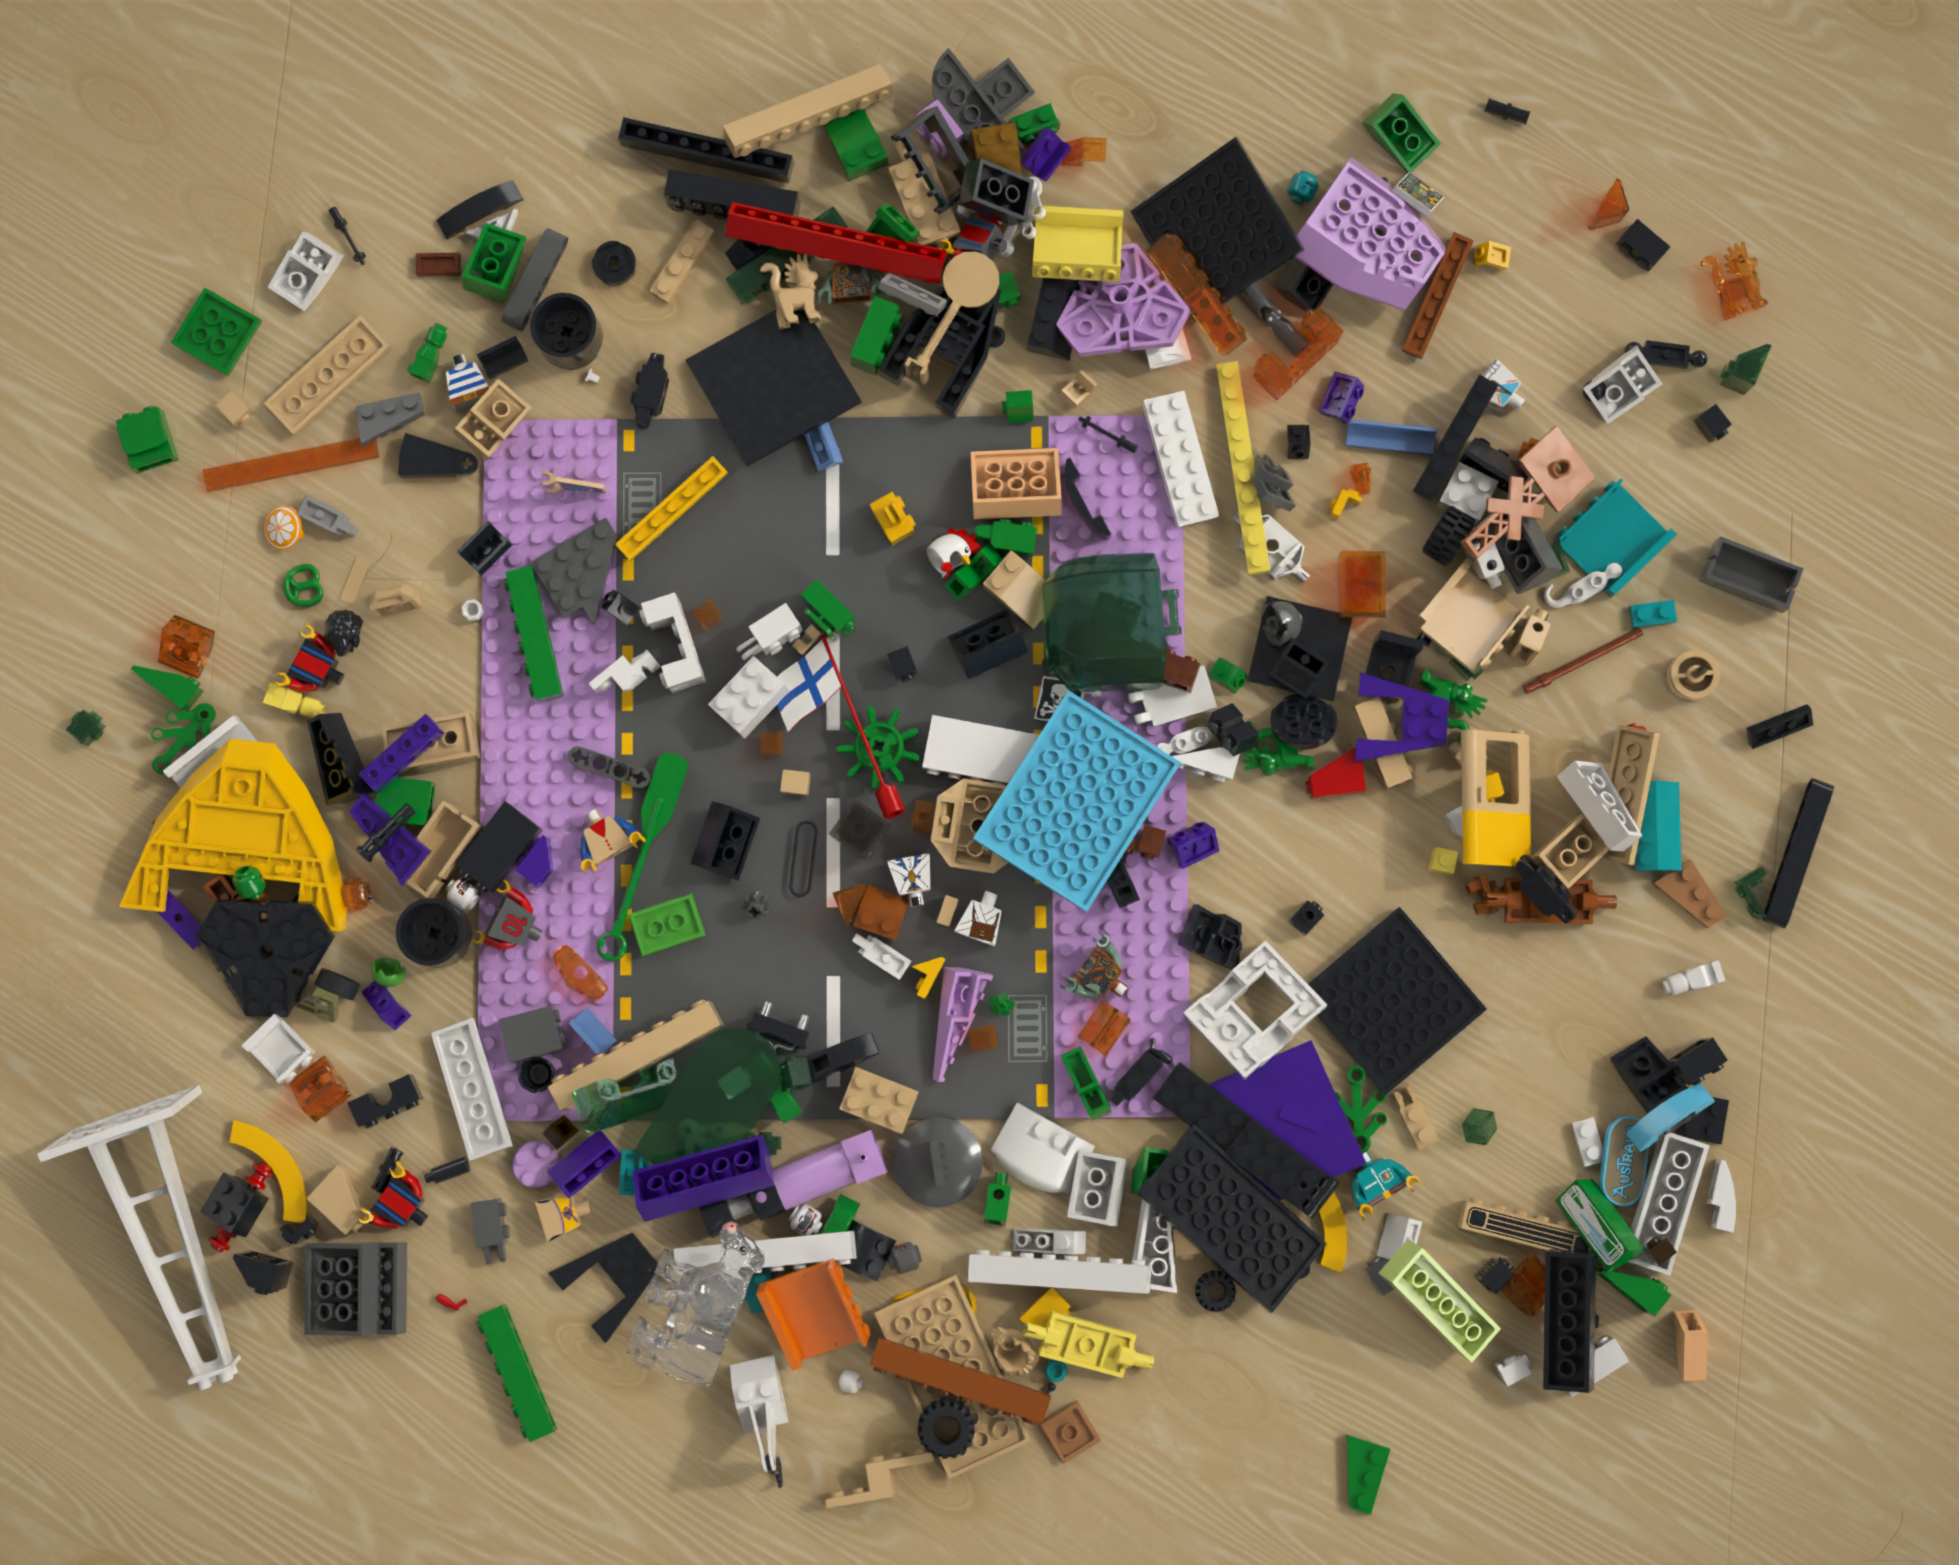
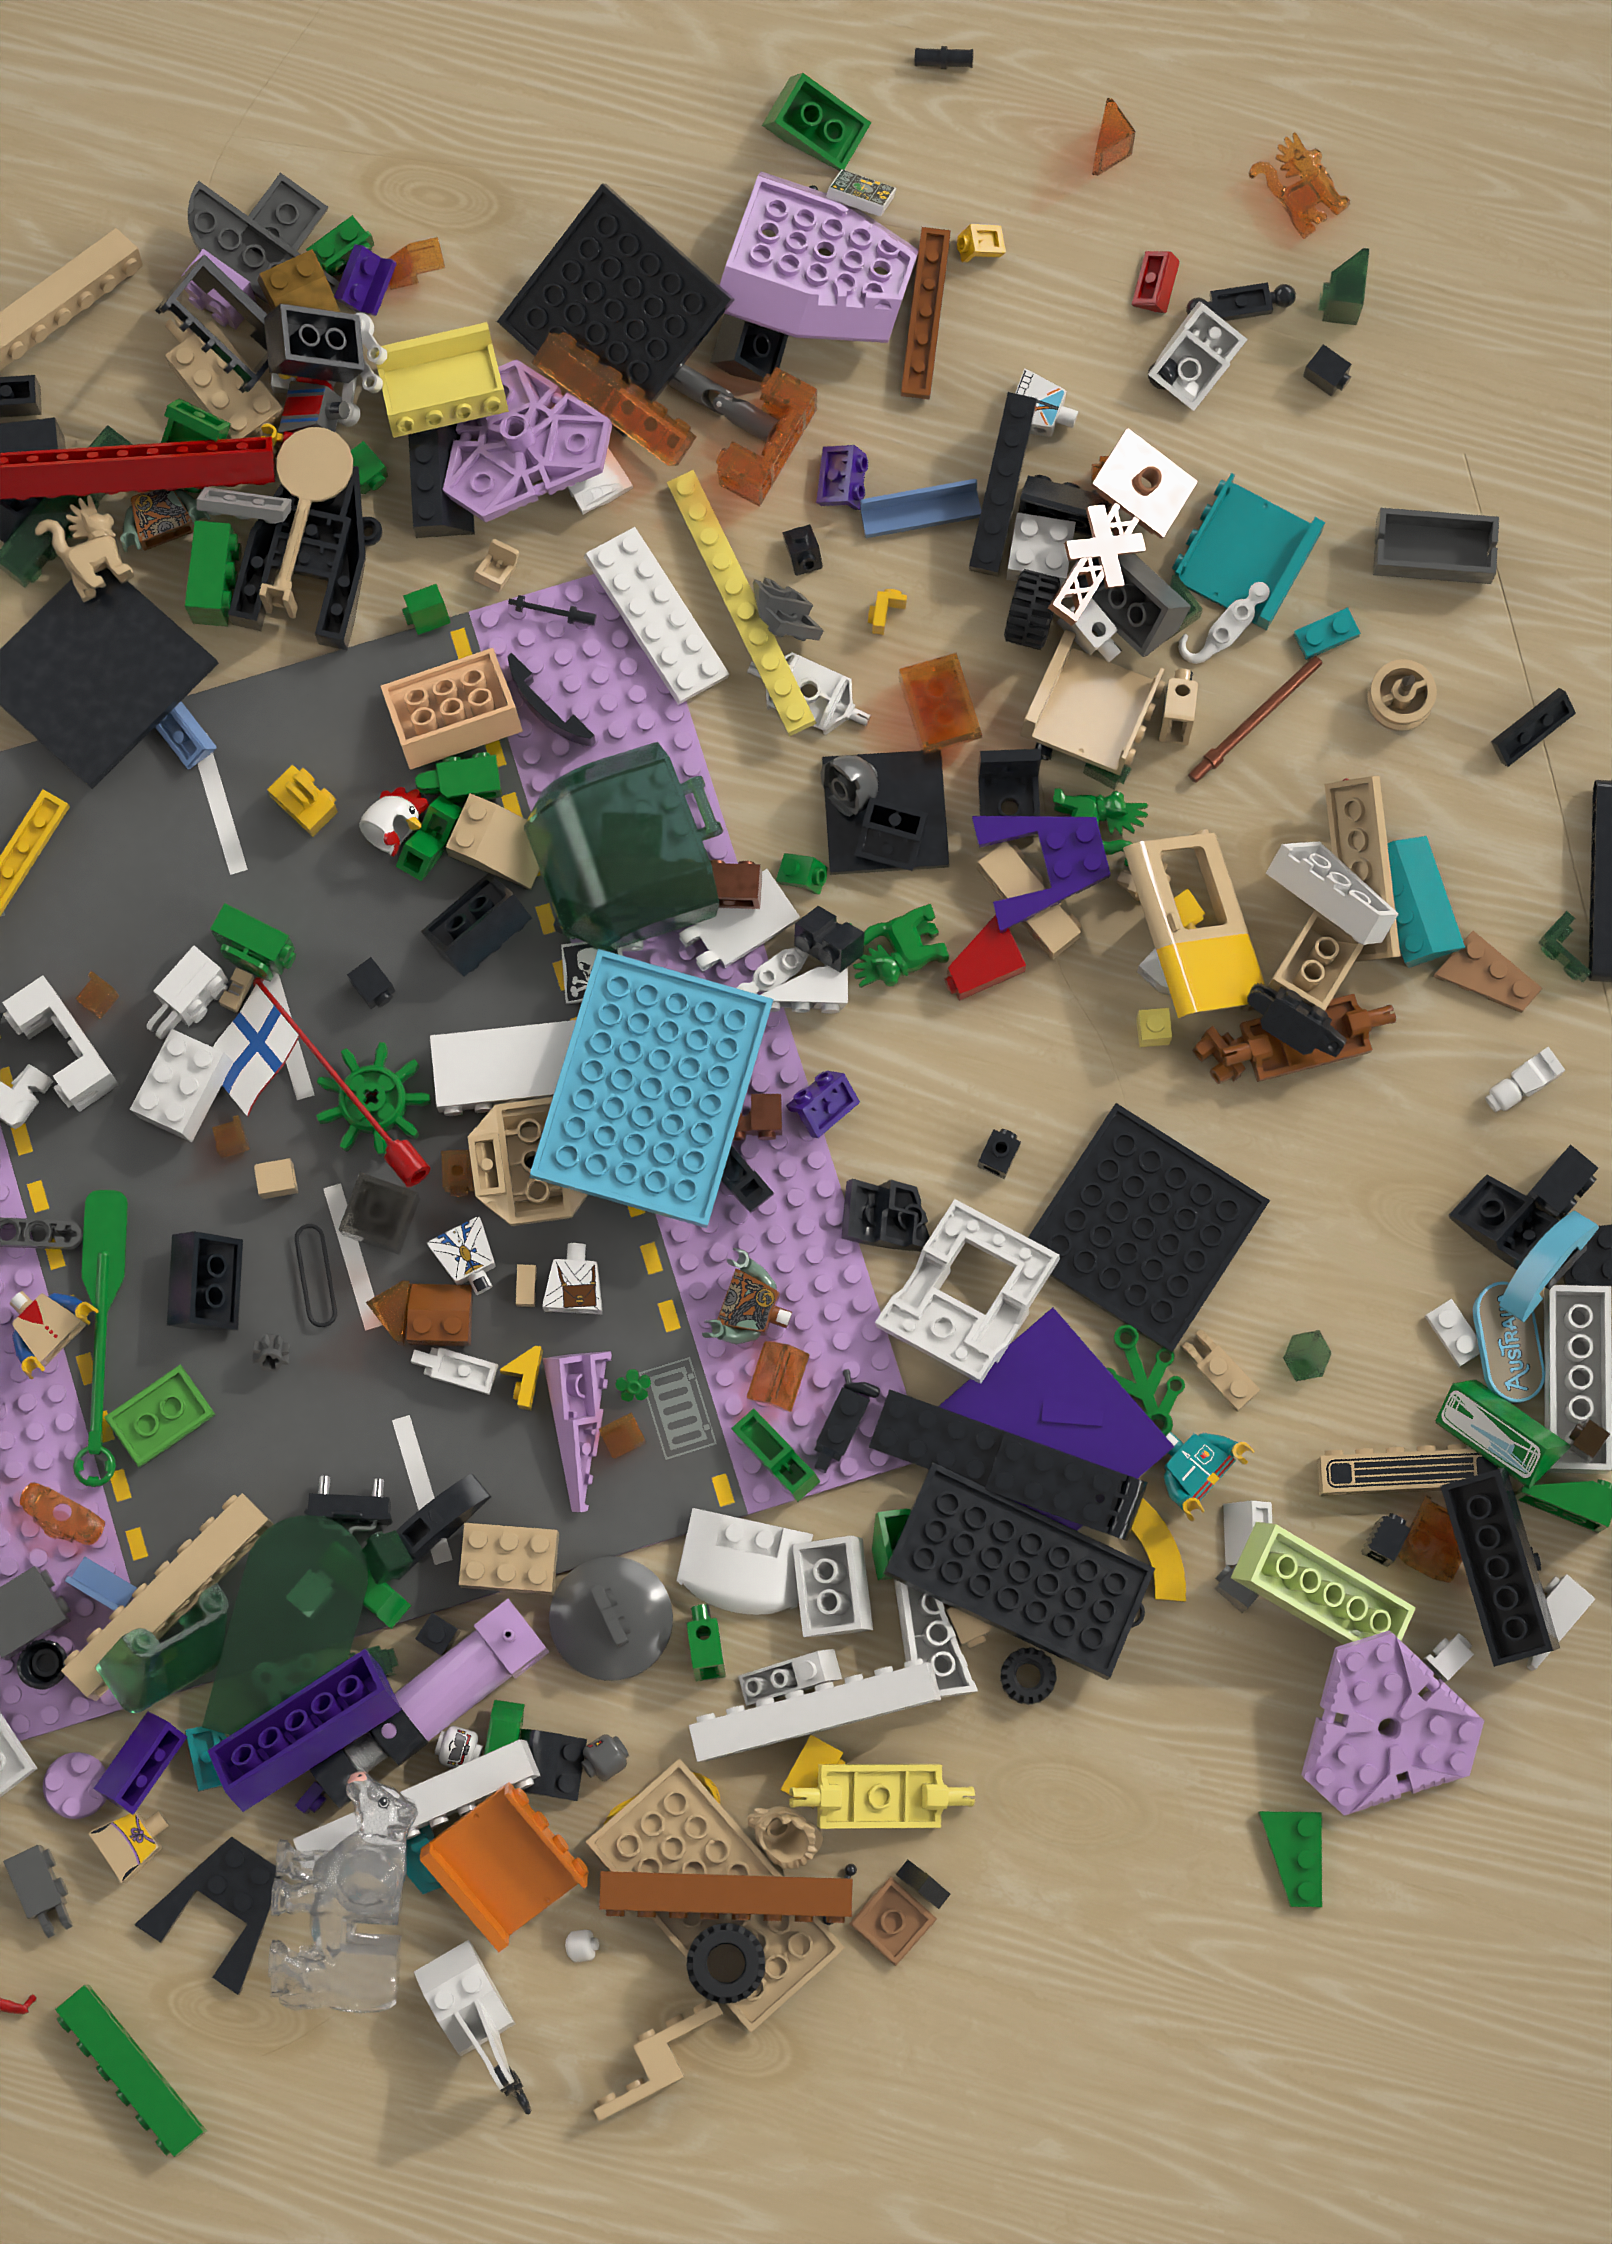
camera: 20 degrees left, 5 degrees down
(560, 1132) = (96, 1731): dark brown plate -> none
(694, 1225) = (312, 1799): none -> dark purple plate
(814, 1137) = (437, 1635): none -> black brick
(856, 144) = (115, 339): green slope -> none
(1055, 1370) = (849, 1845): teal plate -> none
(1098, 1413) = (923, 1884): none -> black piece
(1302, 187) = (710, 227): teal head -> none
(1303, 722) = (918, 902): black tile -> none
(1361, 477) = (898, 570): clear orange cone -> none
(1477, 1421) = (1426, 1737): none -> lavender plate
(1609, 320) = (1156, 281): none -> red slope
(1642, 245) = (1168, 174): black brick -> none

